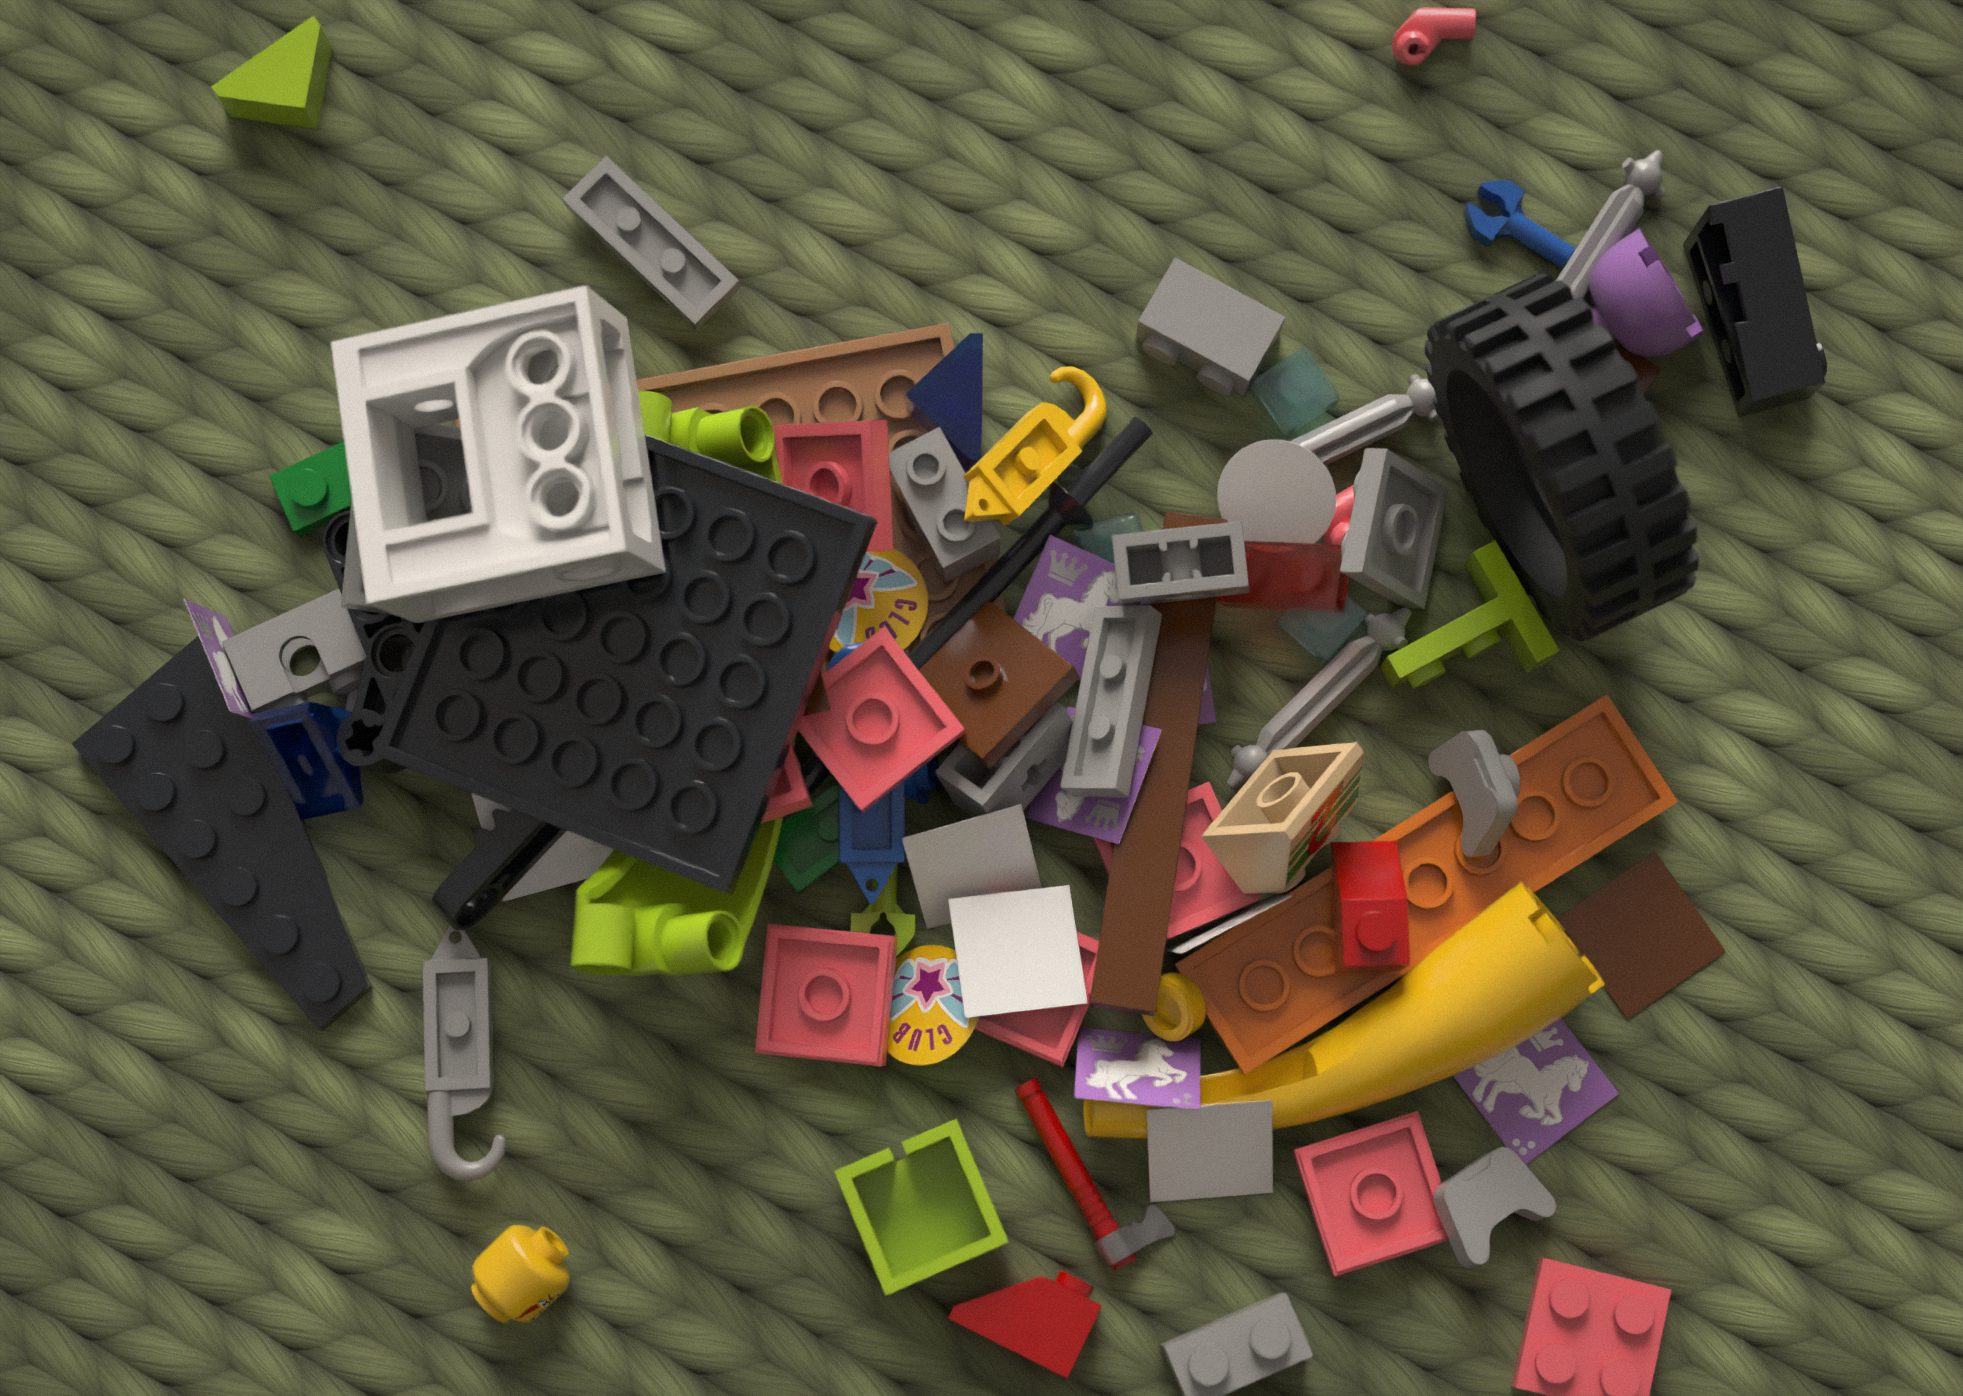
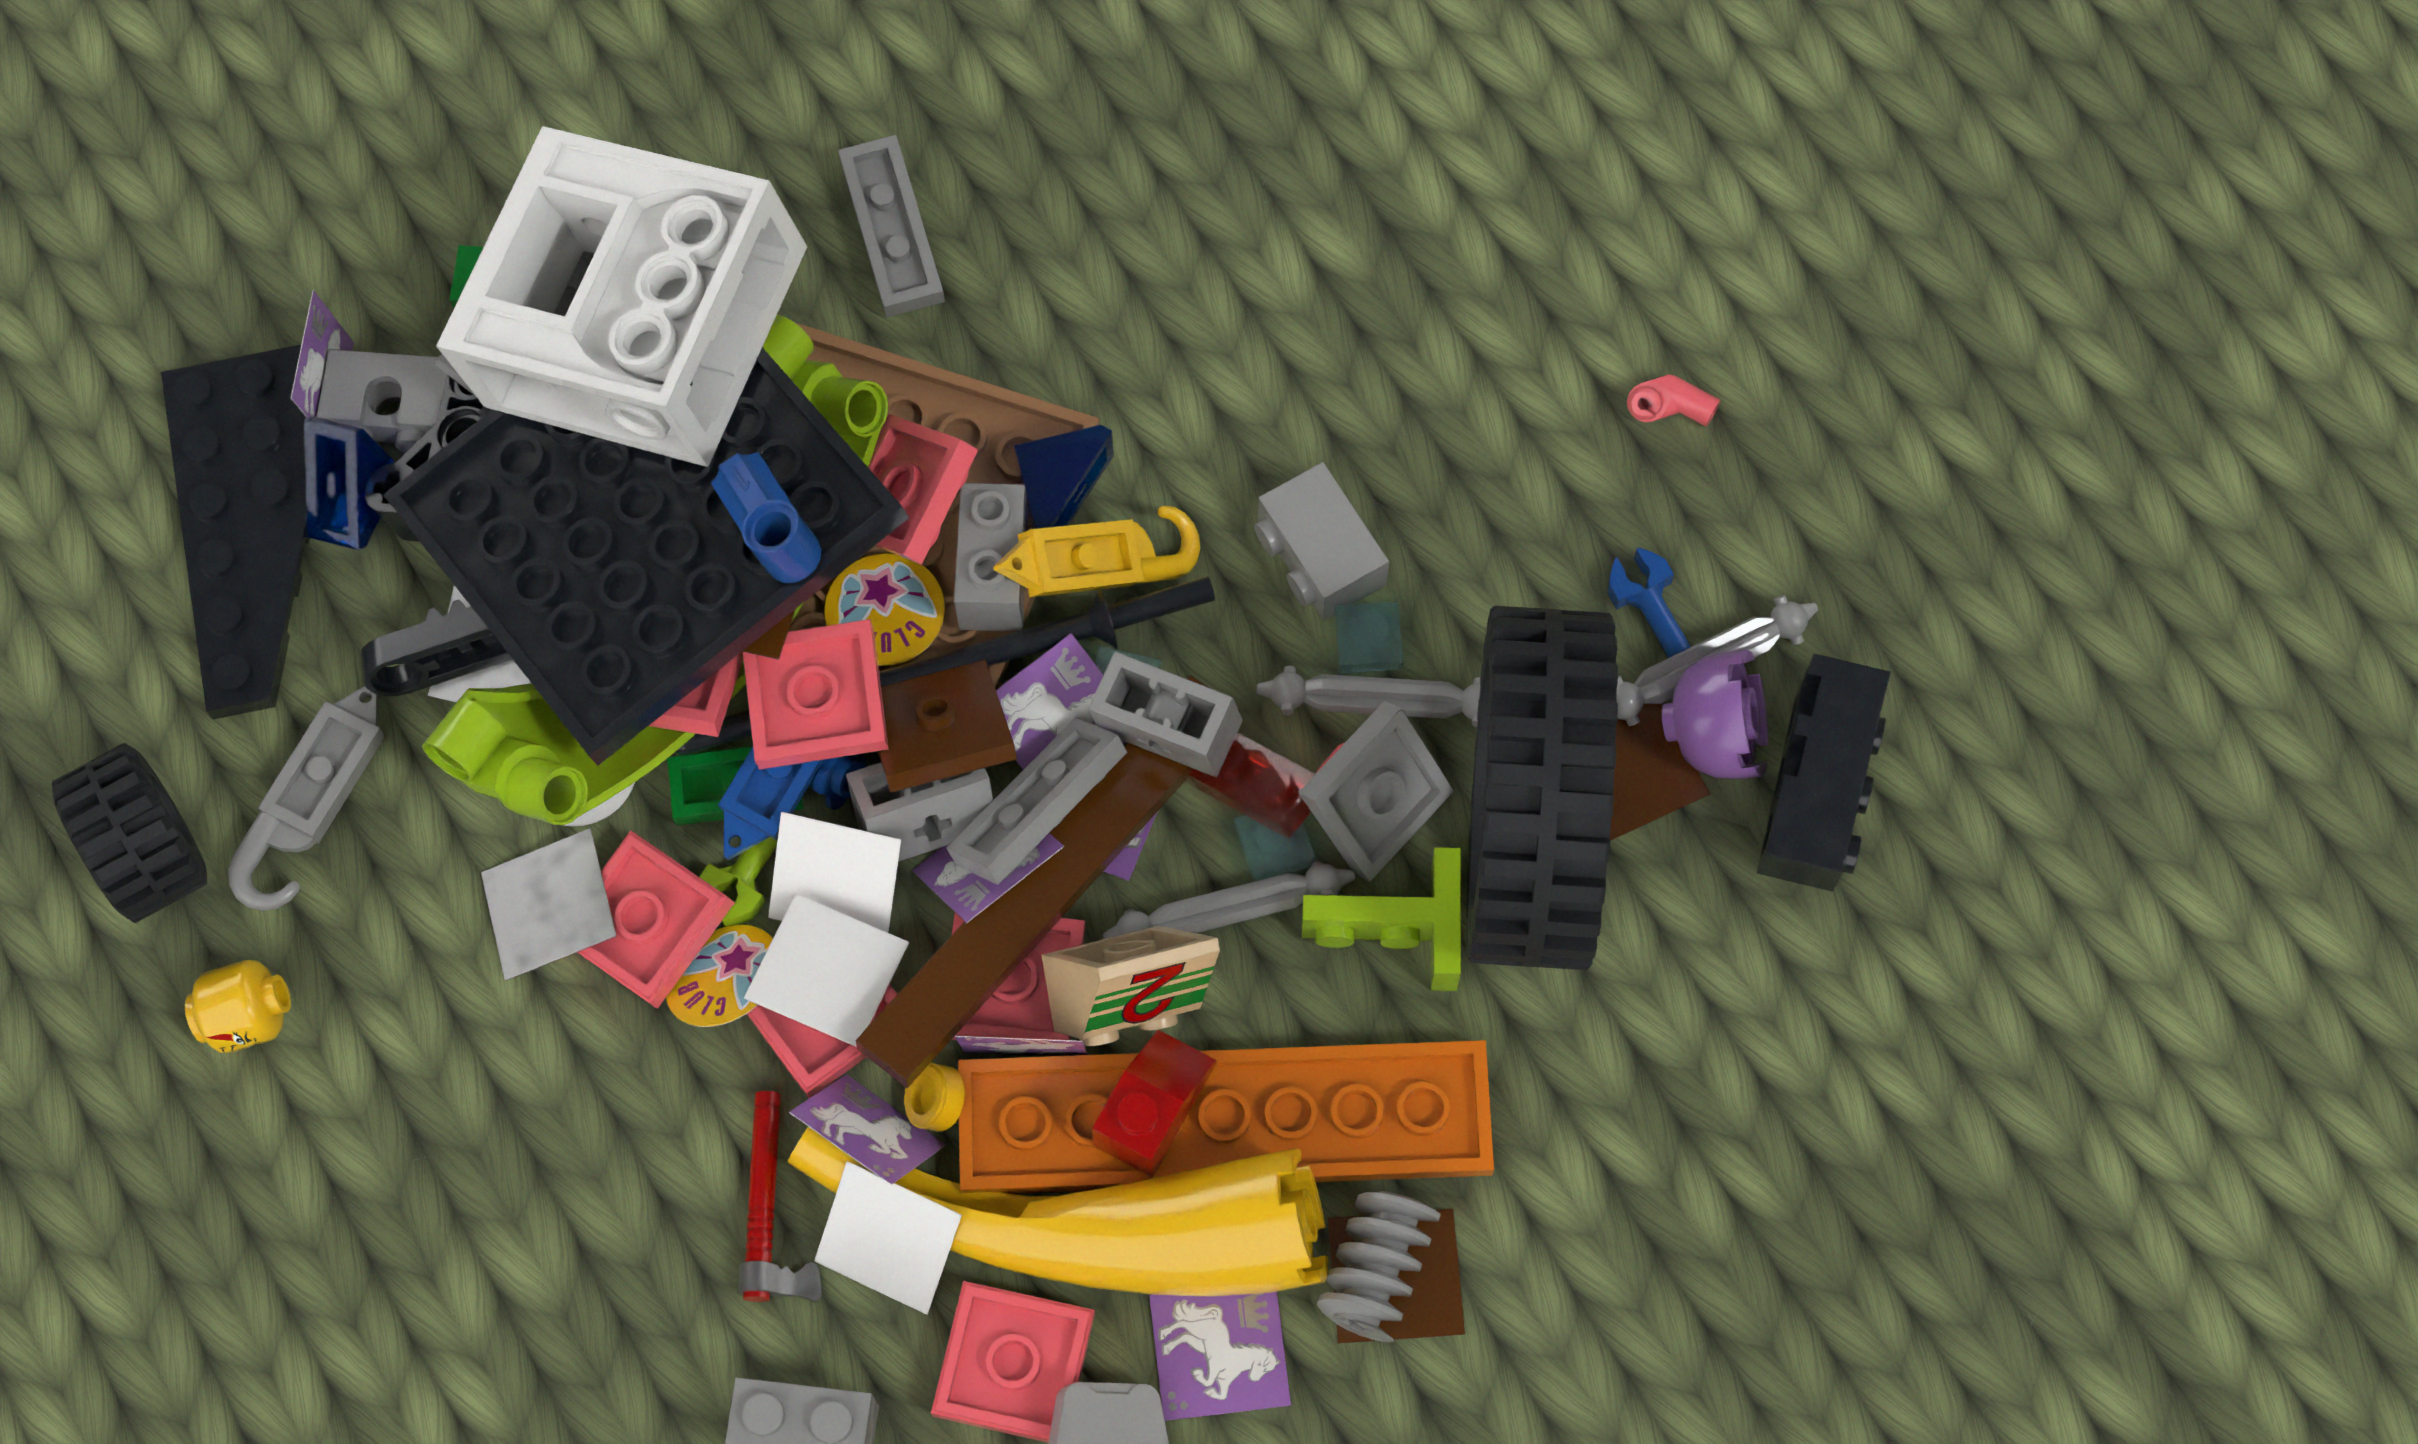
camera: 30 degrees right, 10 degrees down
(334, 1182) = (129, 833): none -> black tyre
(734, 1031) = (548, 904): none -> flat silver sticker
(757, 592) = (767, 518): none -> blue piece
(921, 1209) = (605, 1148): lime piece -> none
(1035, 1319) = (646, 1298): red slope -> none
(1277, 493) = (1295, 709): white sticker -> none
(1483, 785) = (1320, 1053): light grey piece -> none
(1630, 936) = (1375, 1263): none -> light grey piece

